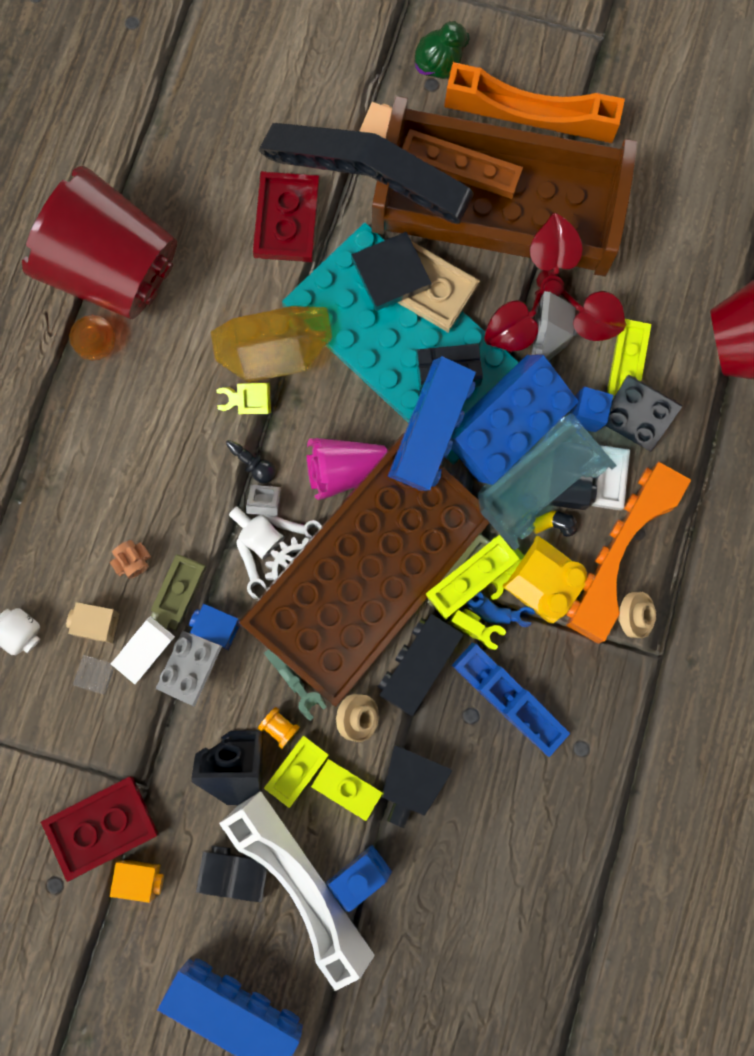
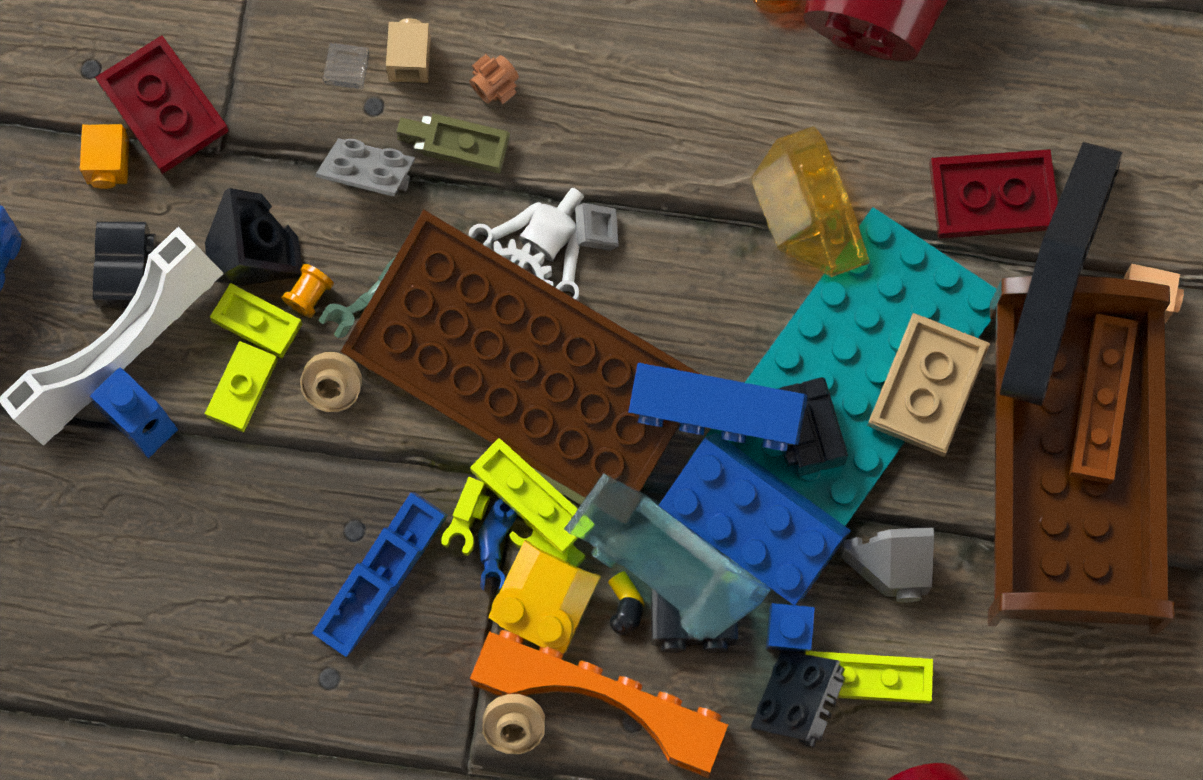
camera: 85 degrees right, 5 degrees down
(142, 650) = (381, 112): white tile -> none
(214, 626) = (422, 188): blue brick -> none
(250, 398) = (732, 187): neon yellow plate -> none
(262, 470) = (638, 221): black bar -> none
(340, 464) = (657, 310): dark pink cone -> none
(391, 271) = (932, 332): black tile -> none
(412, 784) = (257, 461): black torso -> none
(419, 664) = (409, 450): black brick -> none
(554, 248) = (995, 532): dark red plant -> none
(612, 483) = (703, 674): white tile -> none

